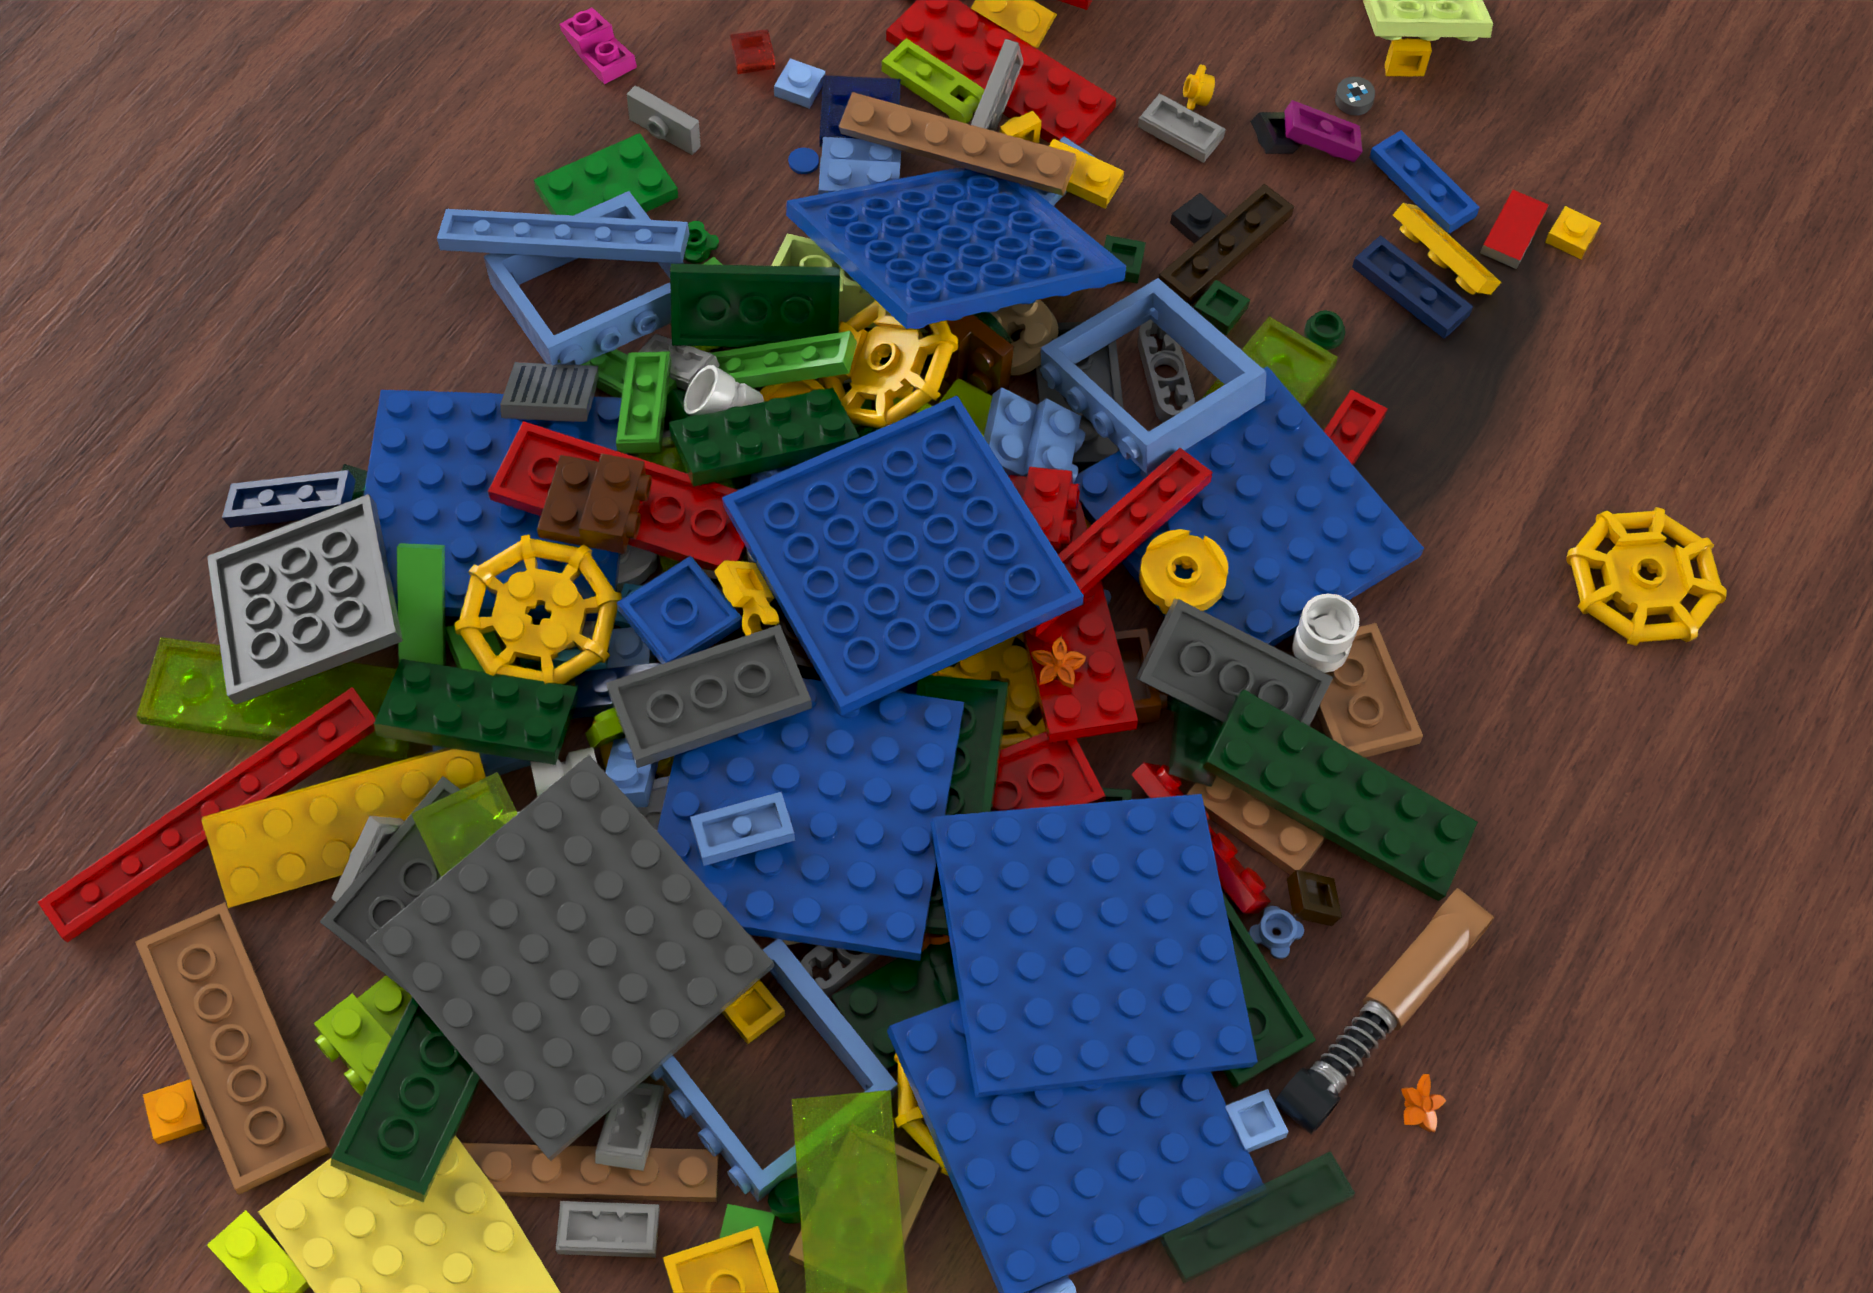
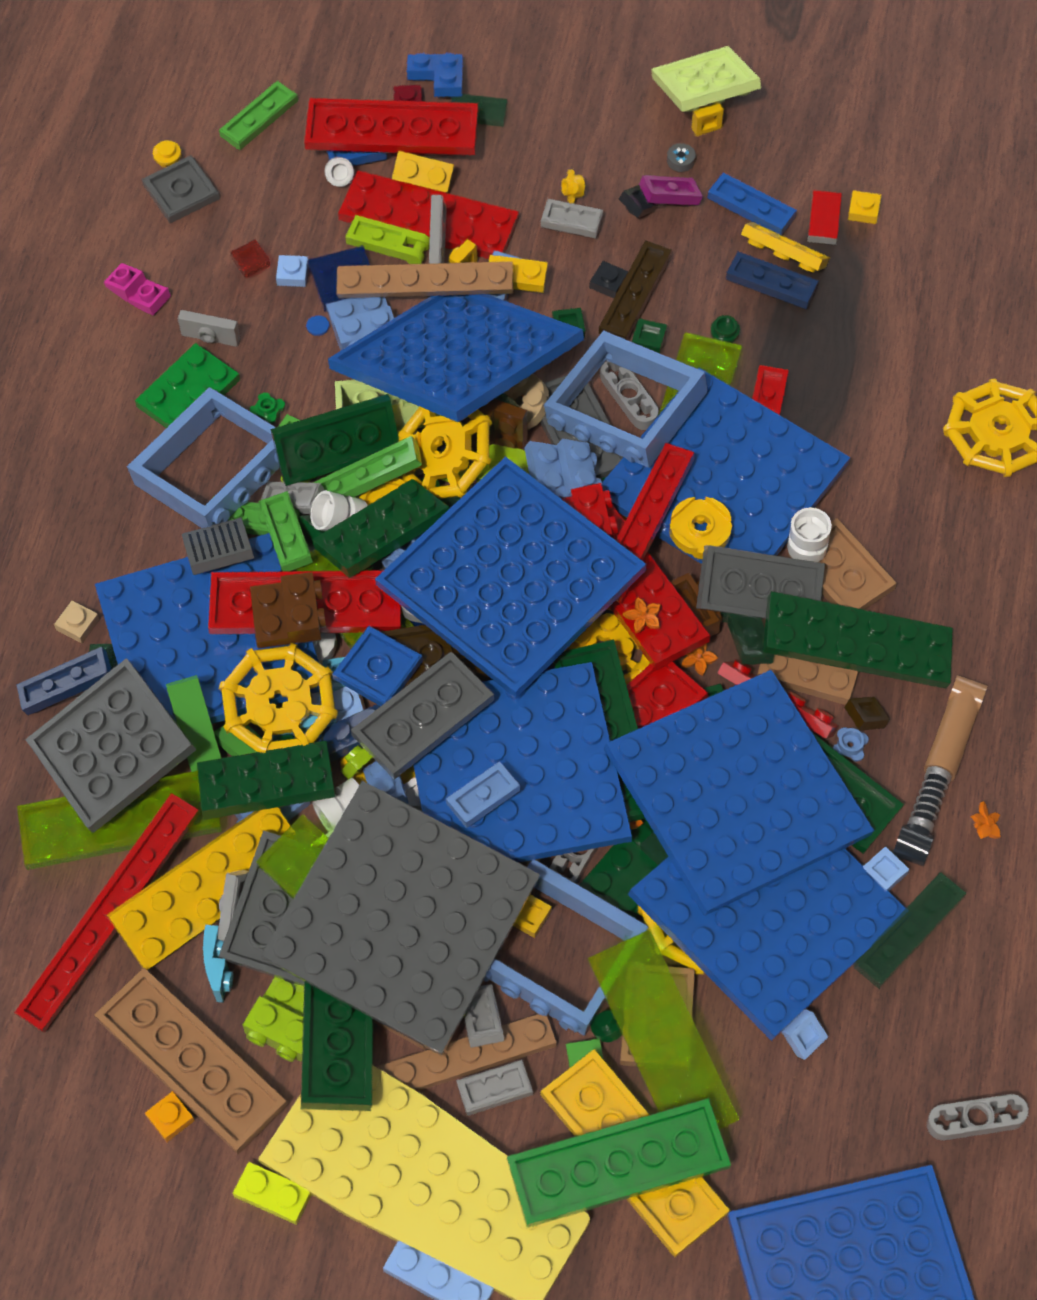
camera: 15 degrees left, 0 degrees up
(314, 942) = (216, 968): none -> medium azure slope
(342, 430) = (76, 622): none -> tan plate
(563, 236) = (180, 434): medium blue plate -> none
(747, 589) = (417, 635): yellow plate -> none
(1119, 746) = (700, 658): none -> orange plant

